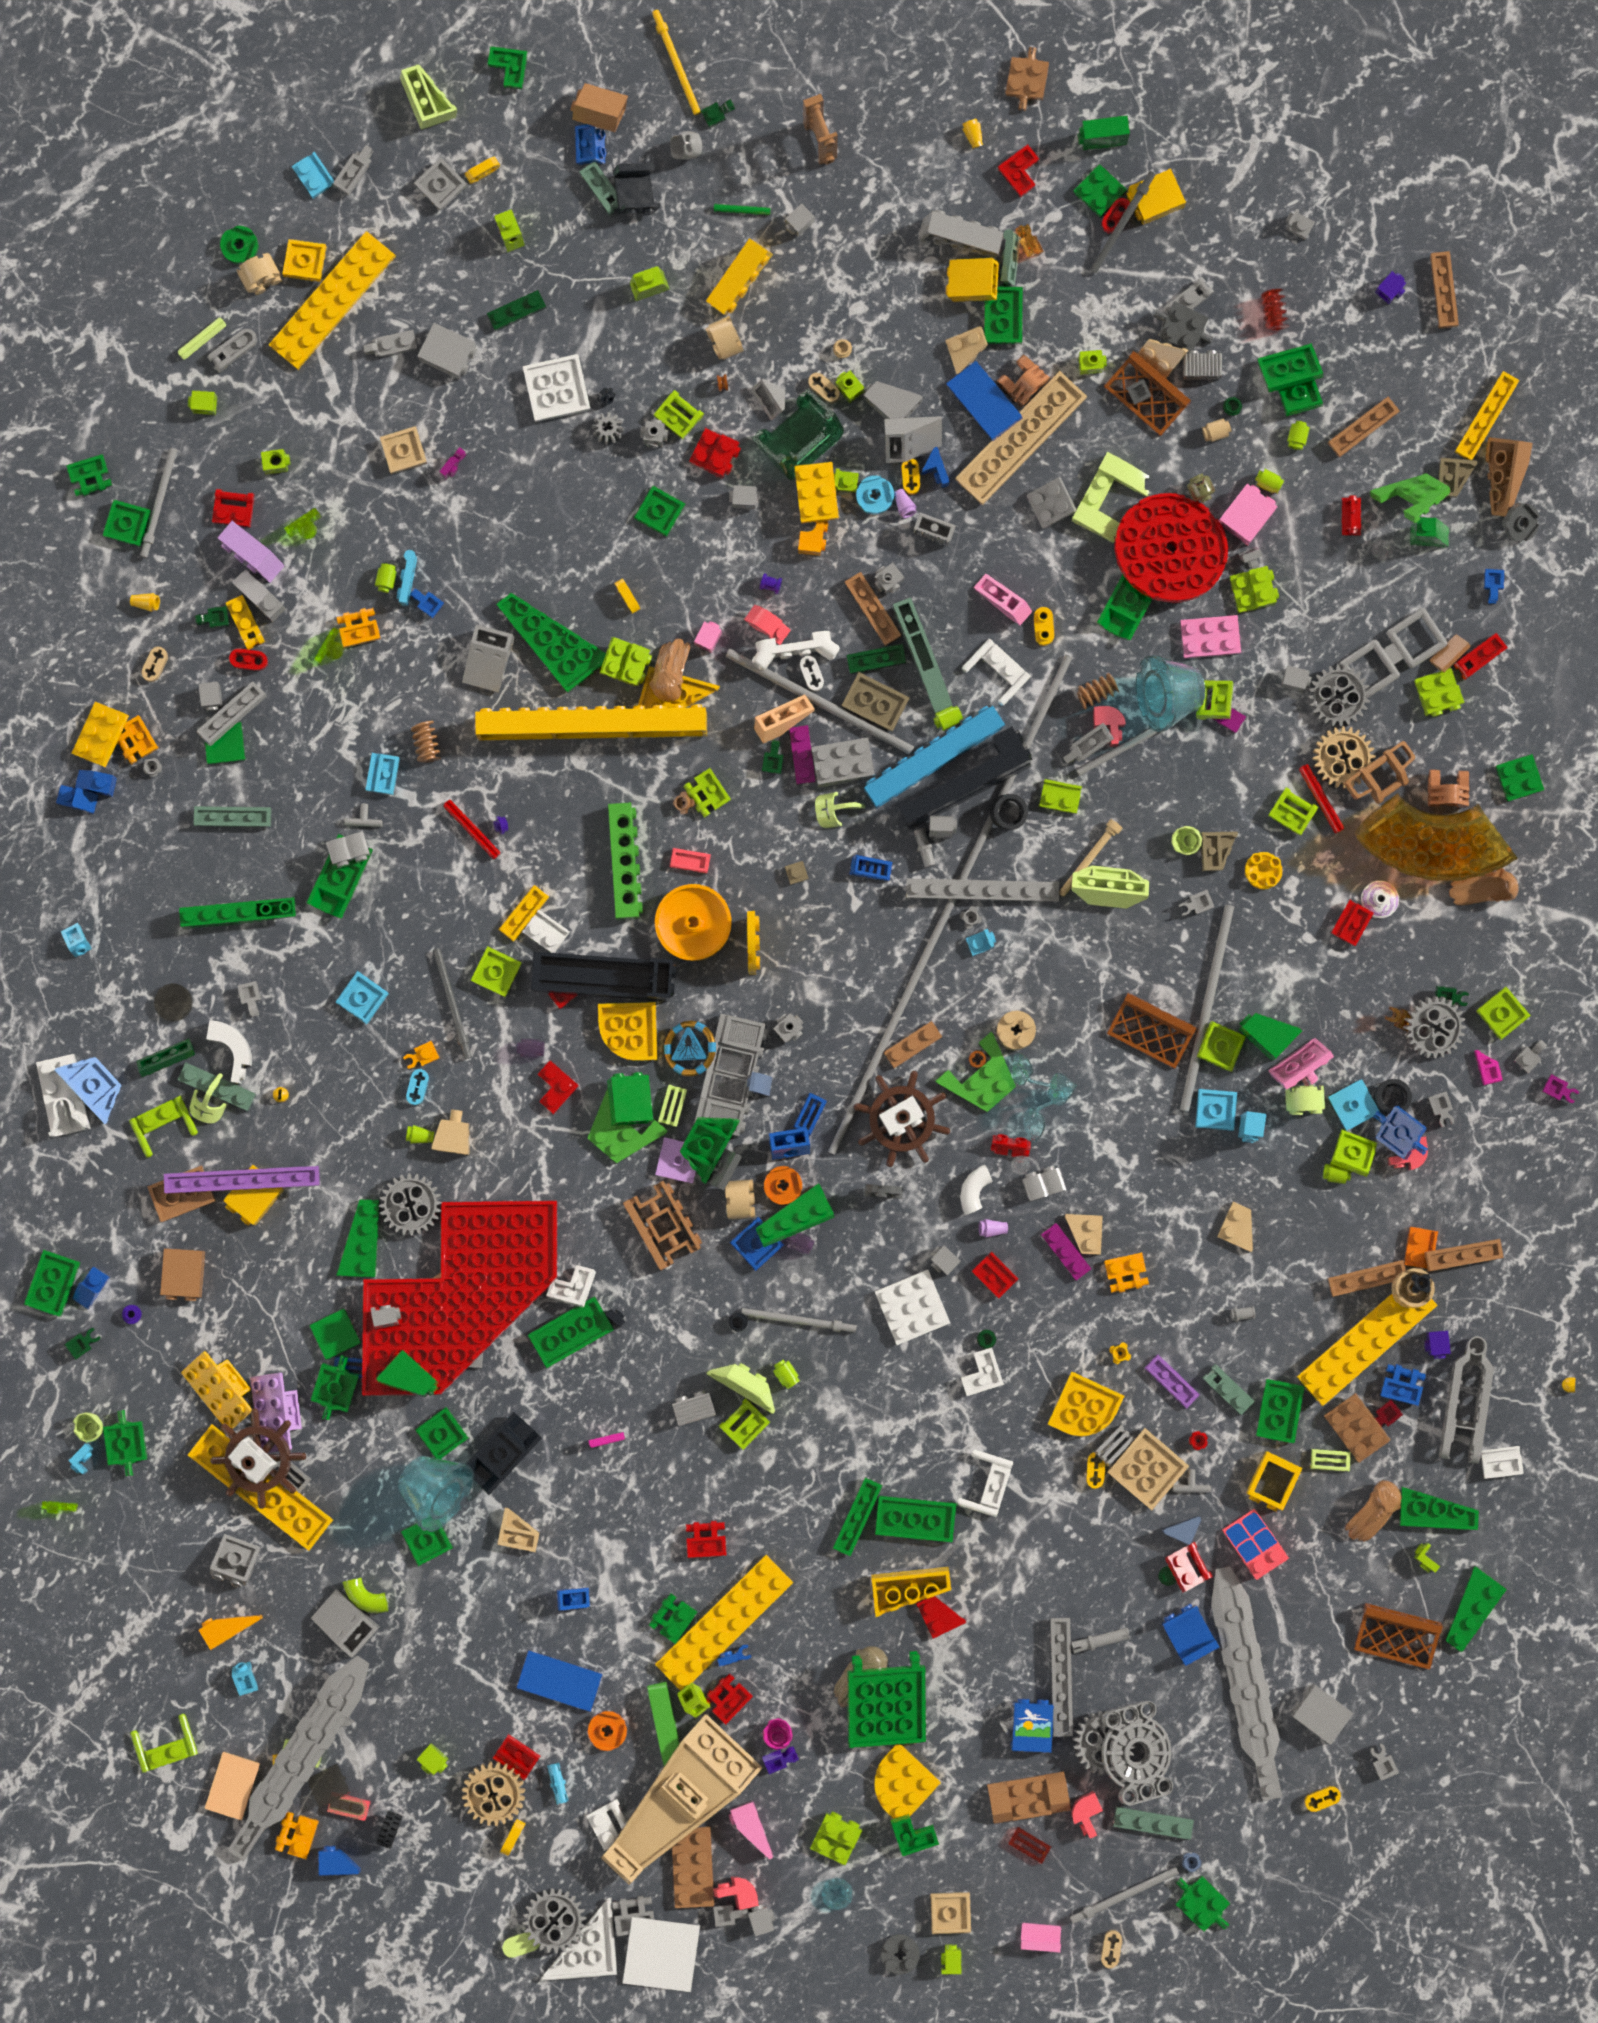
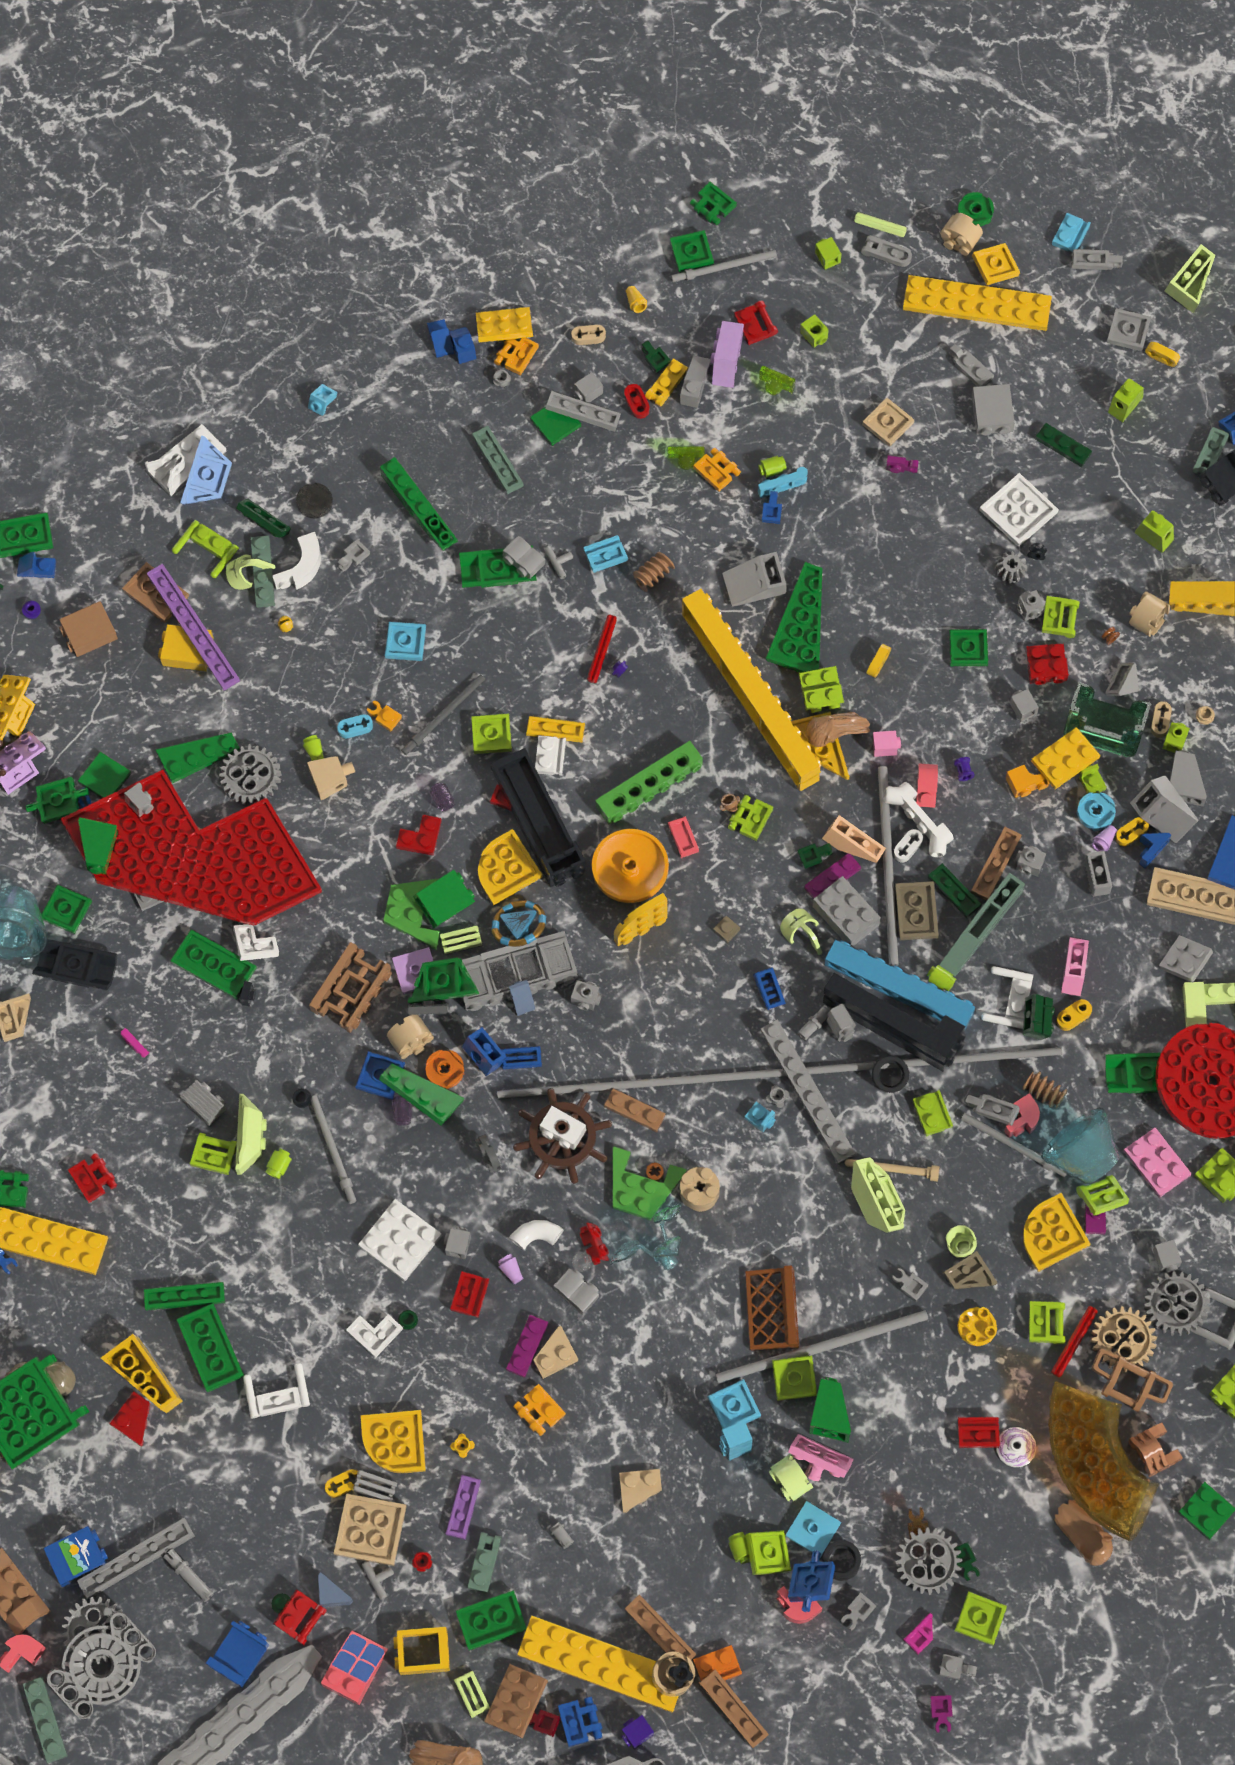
camera: 60 degrees right, 15 degrees down
(1030, 658) = (1038, 1017): none -> dark green brick
(1221, 760) = (1052, 1233): none -> yellow plate

